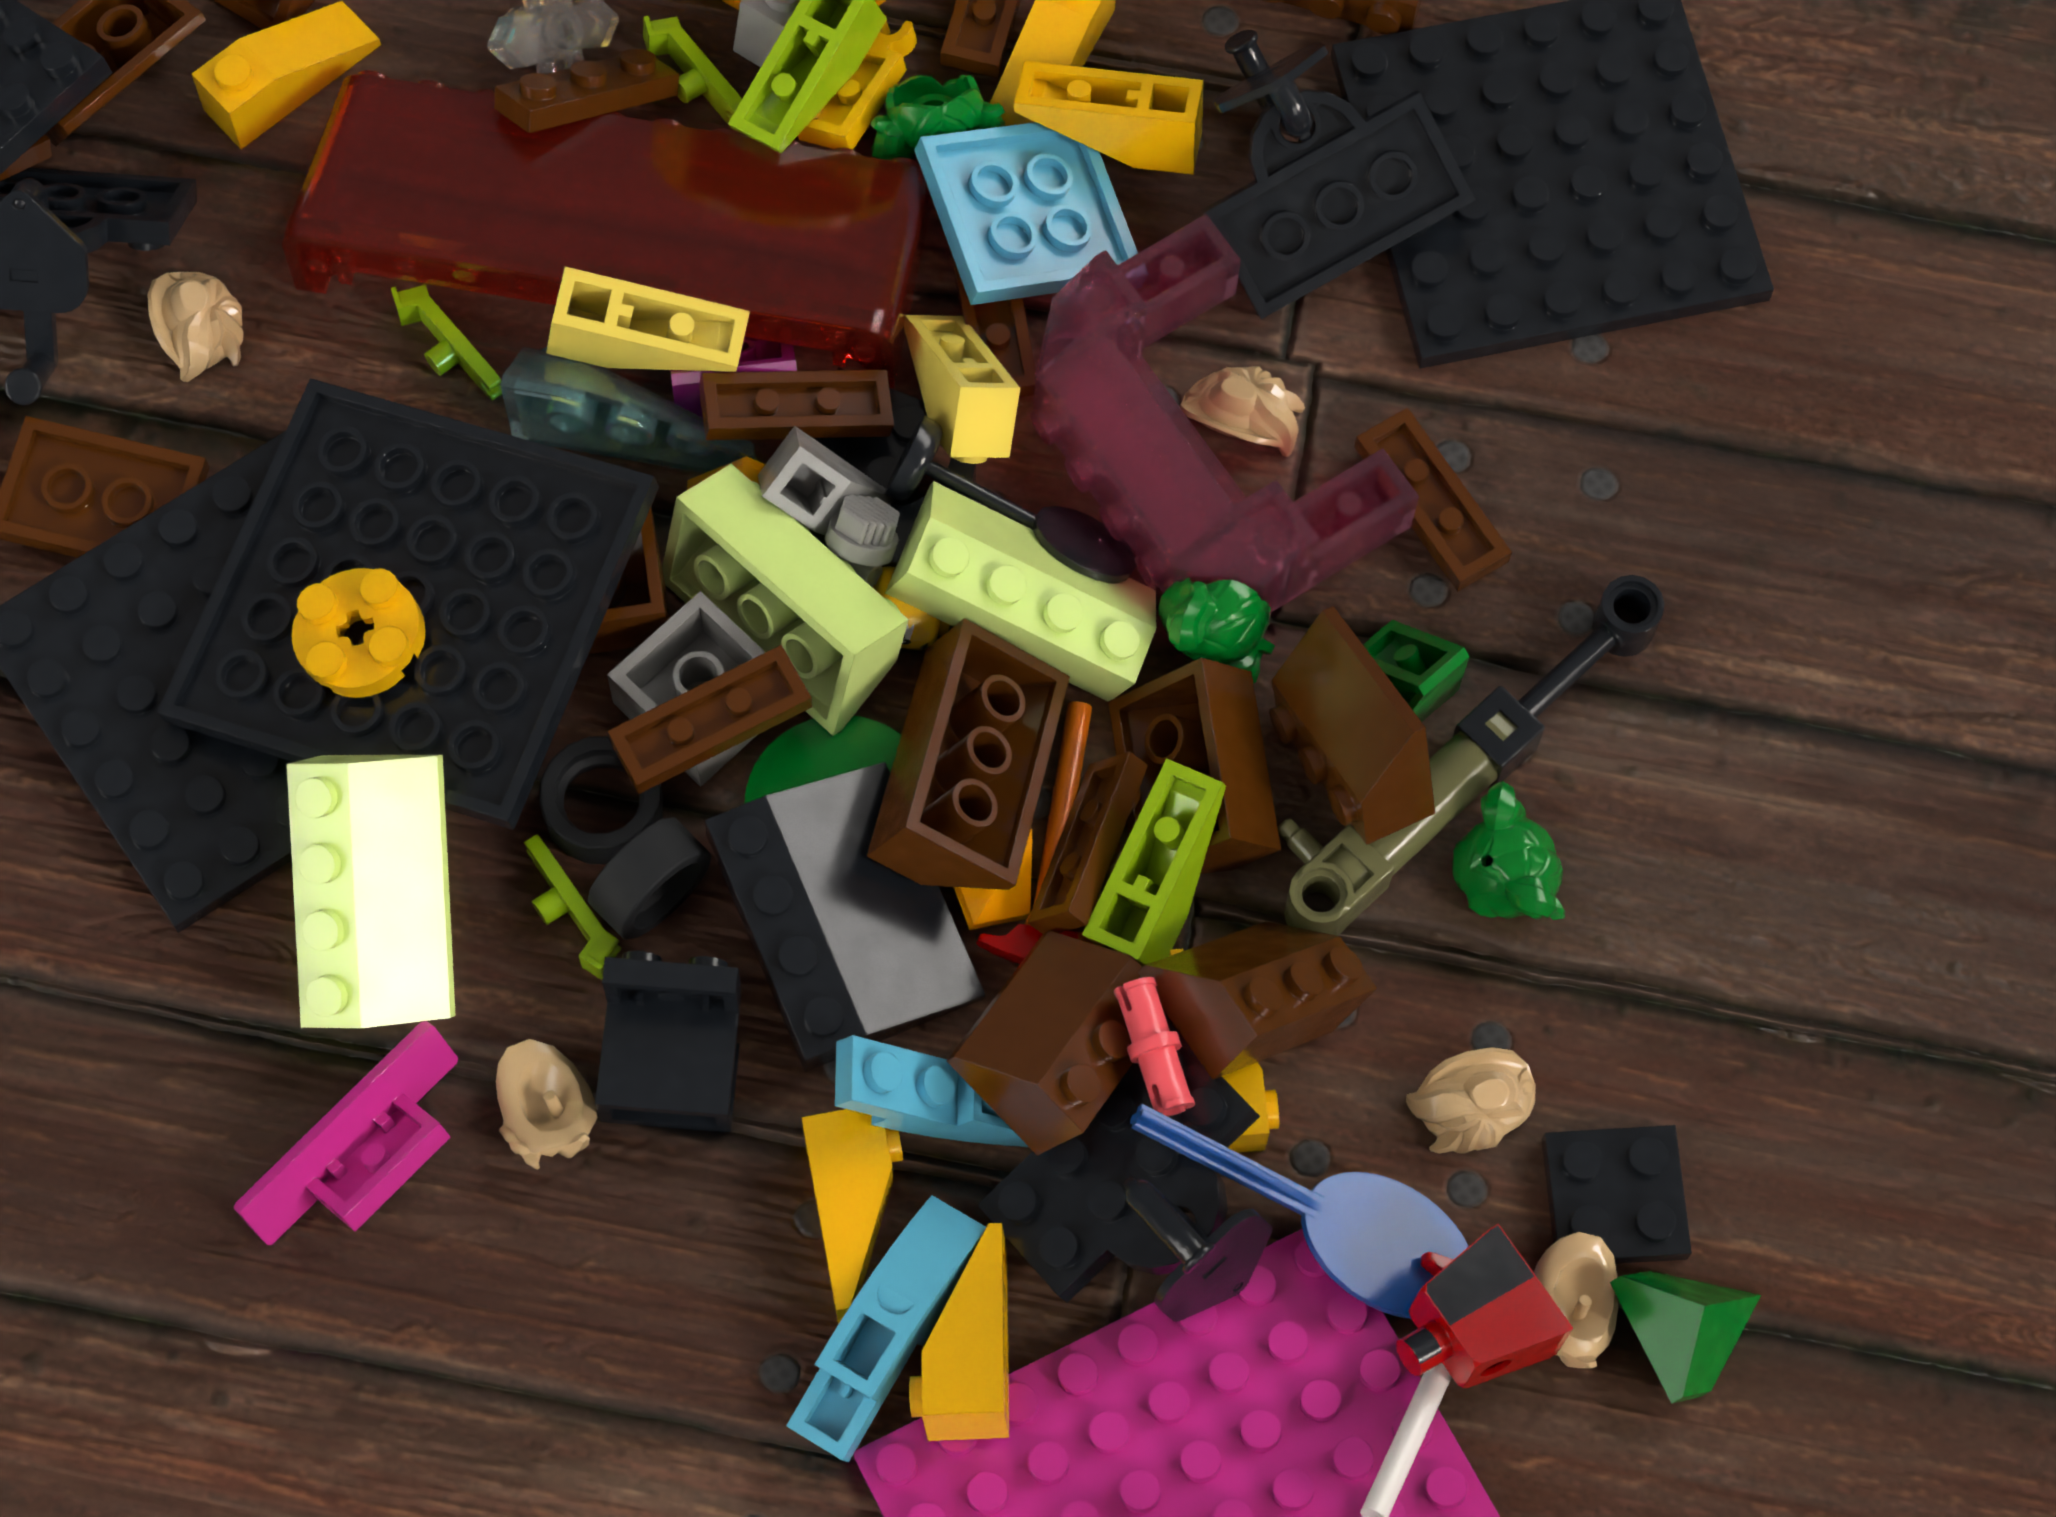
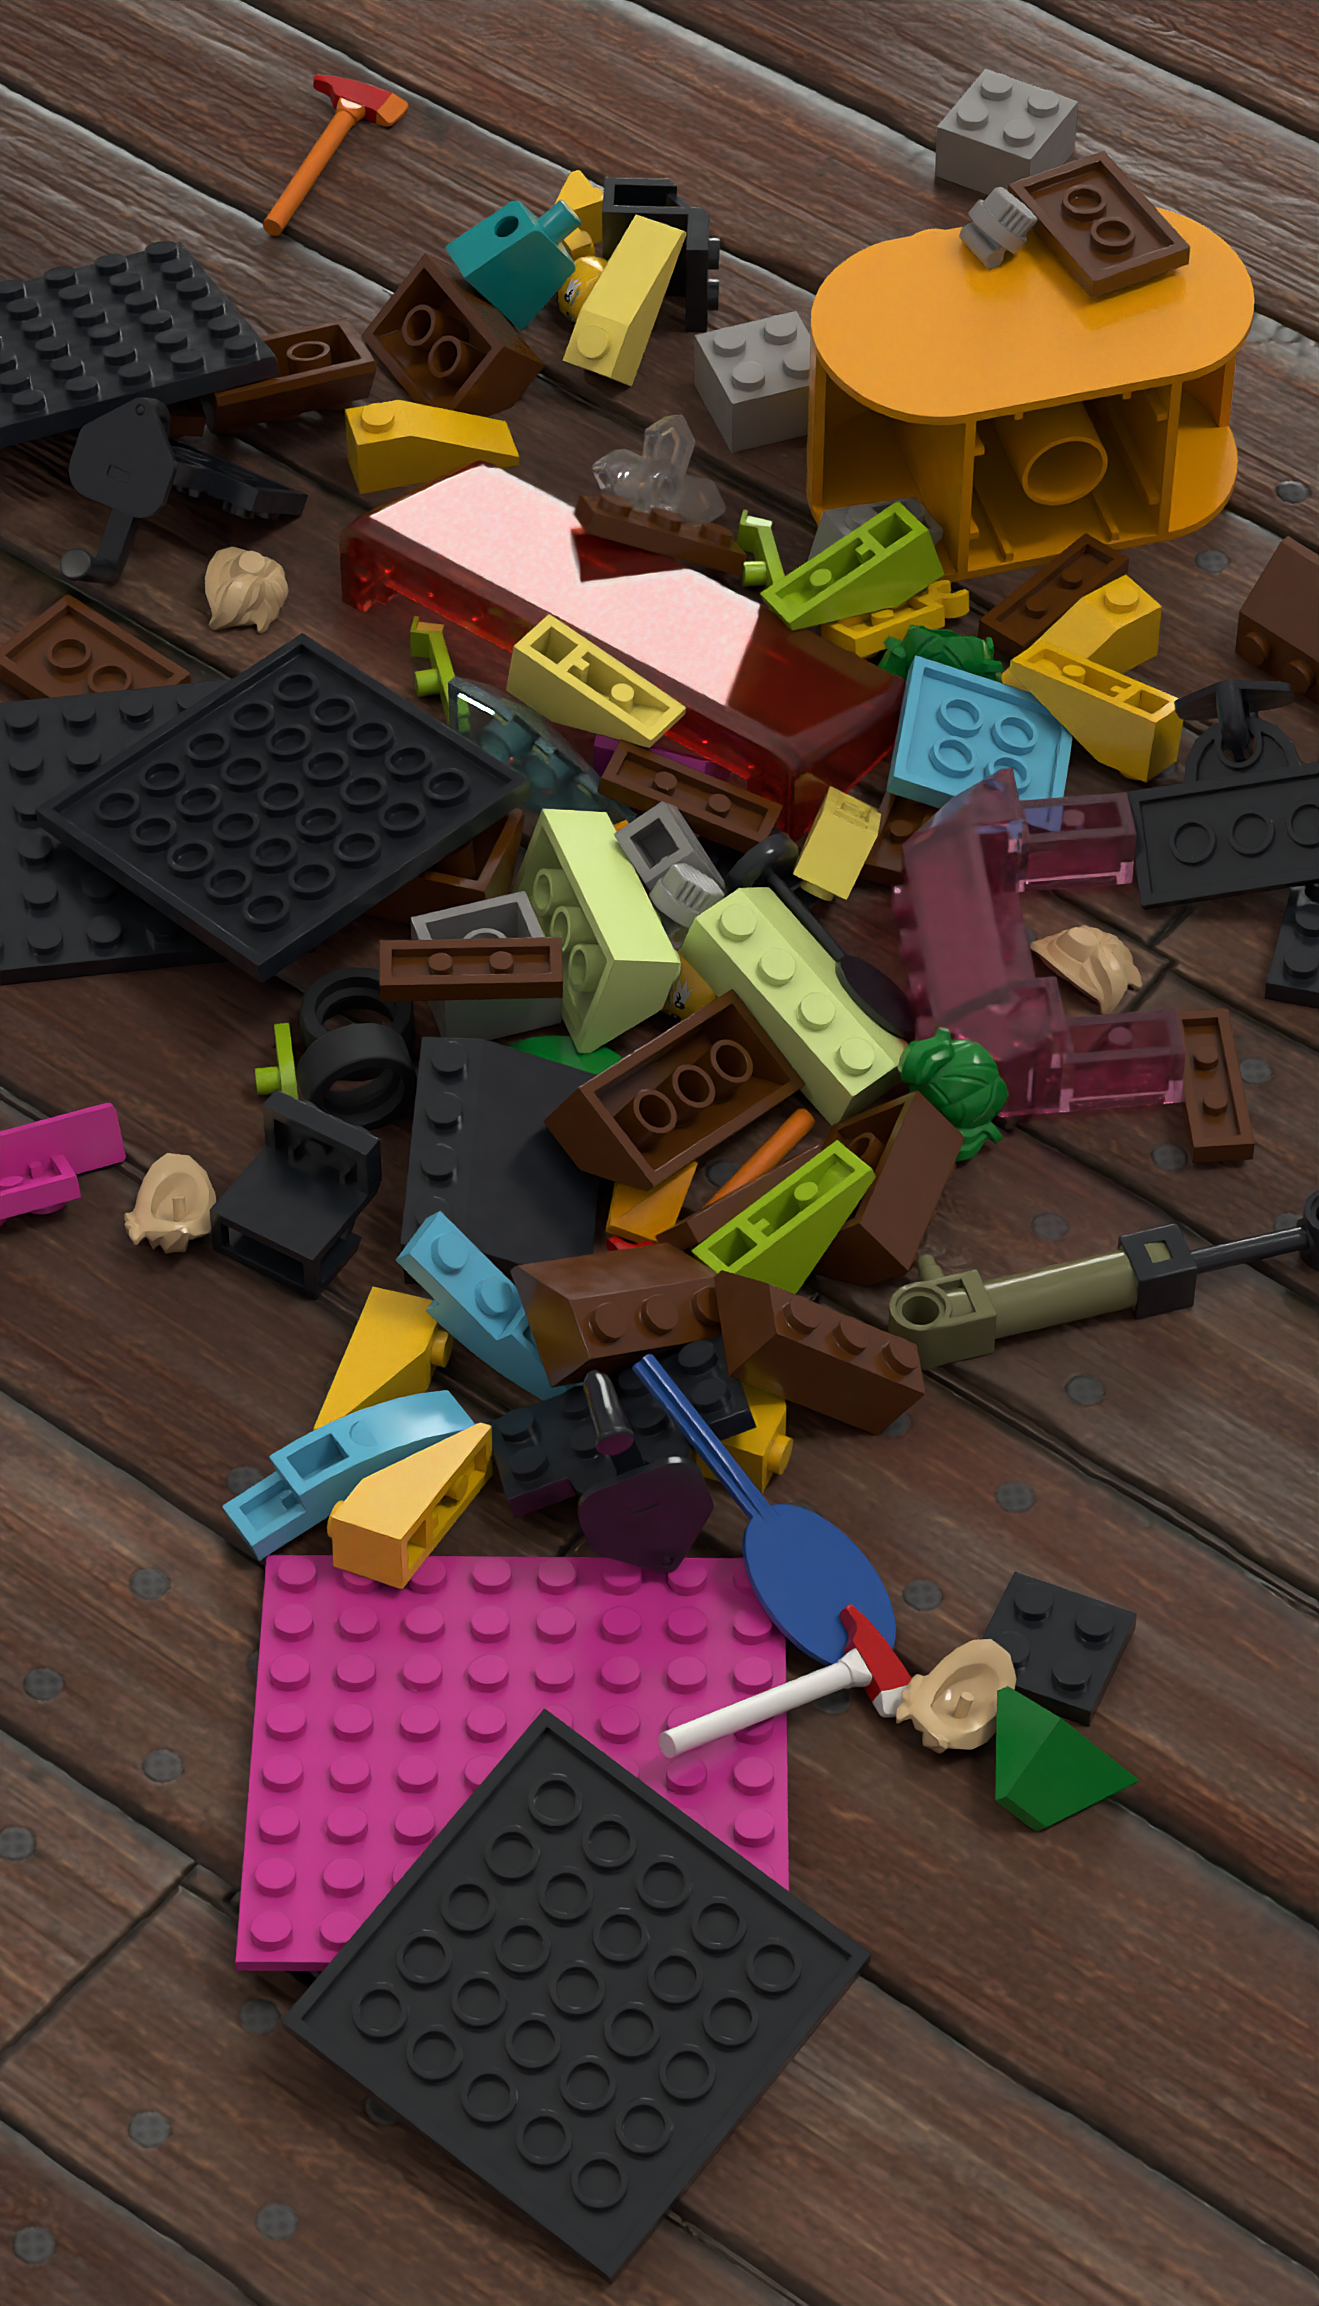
camera: 30 degrees right, 20 degrees down
(337, 603) = (251, 796): yellow plate -> none
(371, 890) = (121, 982): yellowish green slope -> none
(1154, 1046) = (692, 1326): coral pin -> none
(1353, 731) = (1016, 1197): reddish brown slope -> none
(1418, 665) = (1098, 1209): green slope -> none
(1474, 1099) = (970, 1522): tan hat -> none
(1483, 1316) = (859, 1650): red torso -> none
(1523, 867) = (1110, 1362): green hair -> none

